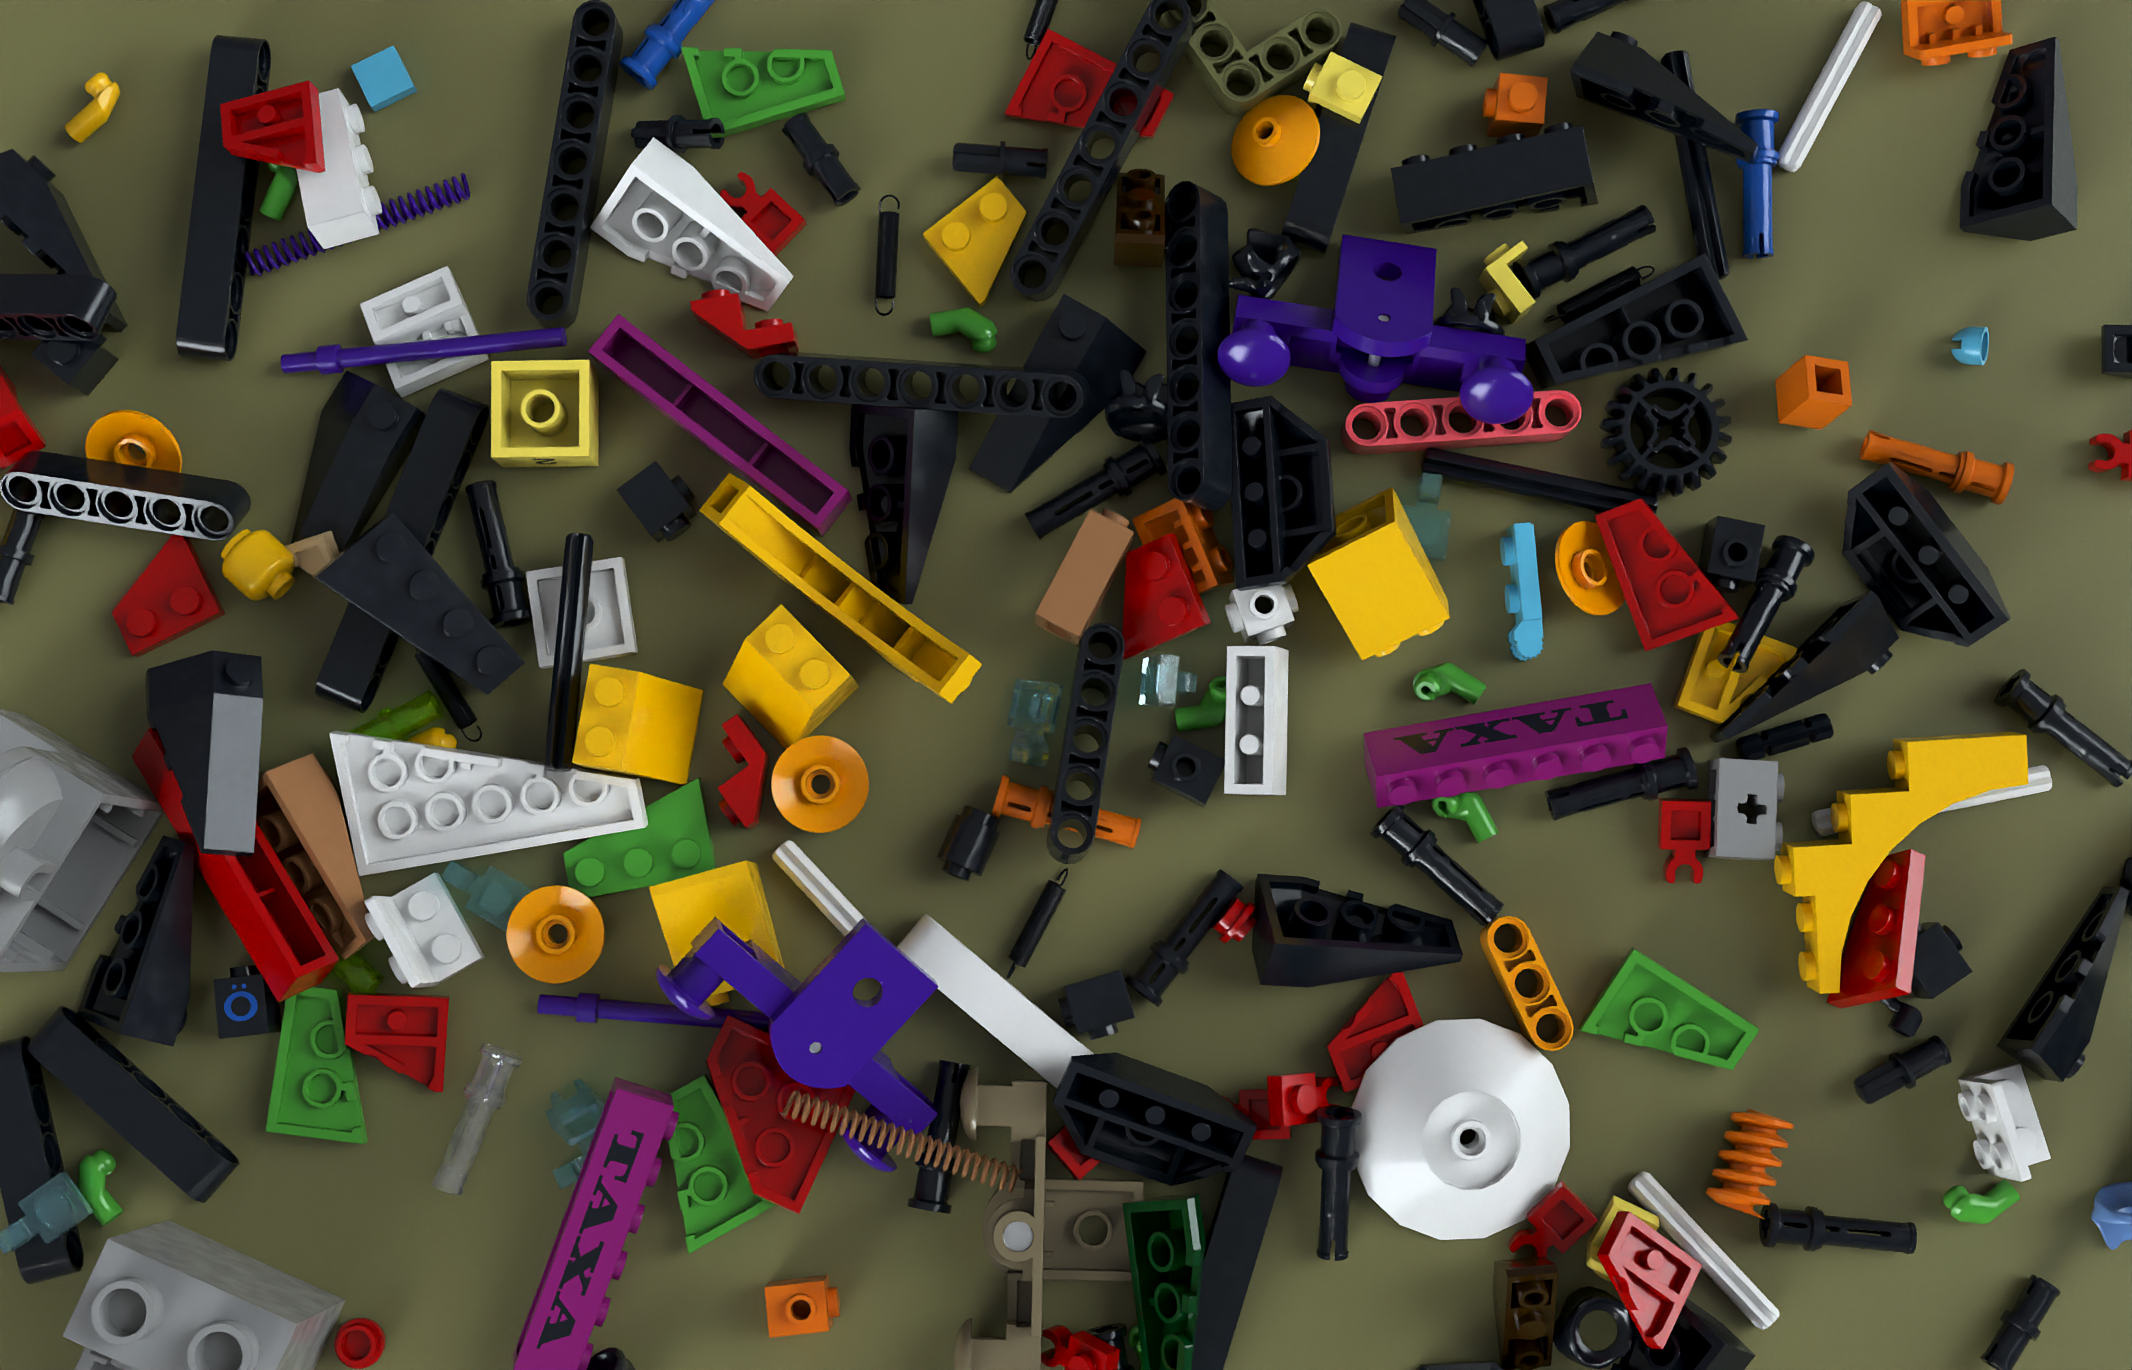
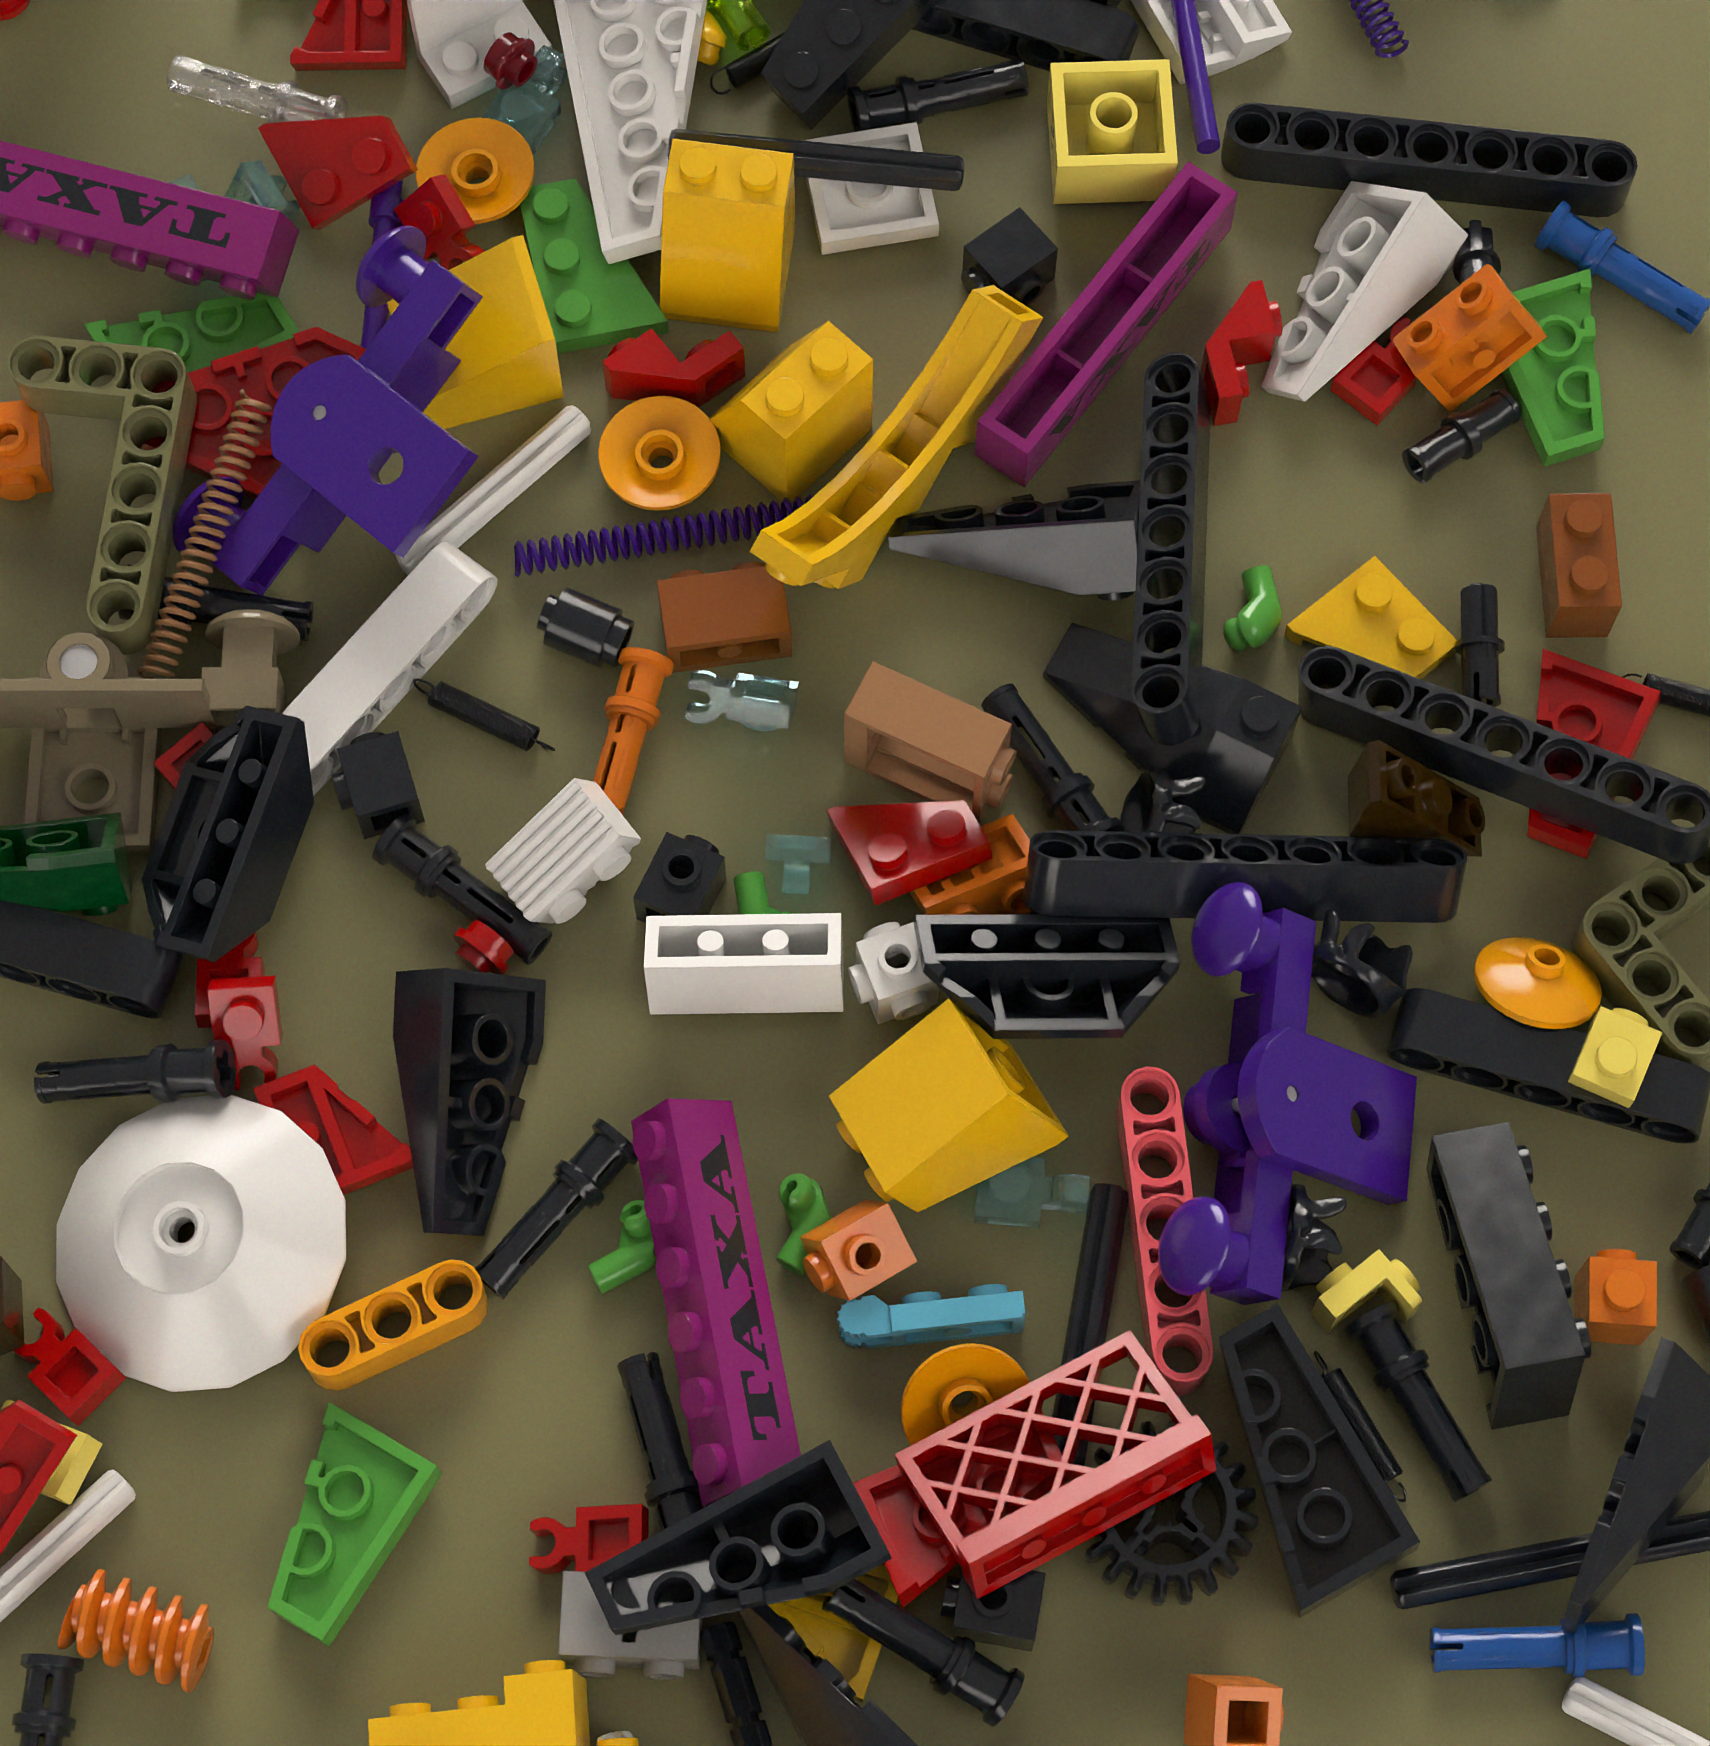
camera: 90 degrees right, 15 degrees down
(458, 903) = (511, 61): none -> dark red plate
(546, 1048) = (337, 162): none -> red wing
(609, 960) = (443, 219): none -> red plate
(747, 145) = (1468, 338): none -> orange bracket
(842, 1202) = (133, 470): none -> olive beam
(887, 255) = (1345, 519): black piece -> none
(887, 795) = (648, 539): none -> dark purple piece
(939, 79) = (1578, 565): none -> dark orange brick
(963, 737) = (724, 617): none -> dark orange brick
(1090, 720) = (681, 759): black beam -> none
(1165, 858) = (564, 853): none -> white brick
(1477, 643) = (856, 1250): none -> orange brick
(1679, 485) = (1073, 1510): none -> red fence
(1713, 708) = (759, 1546): none -> black wedge

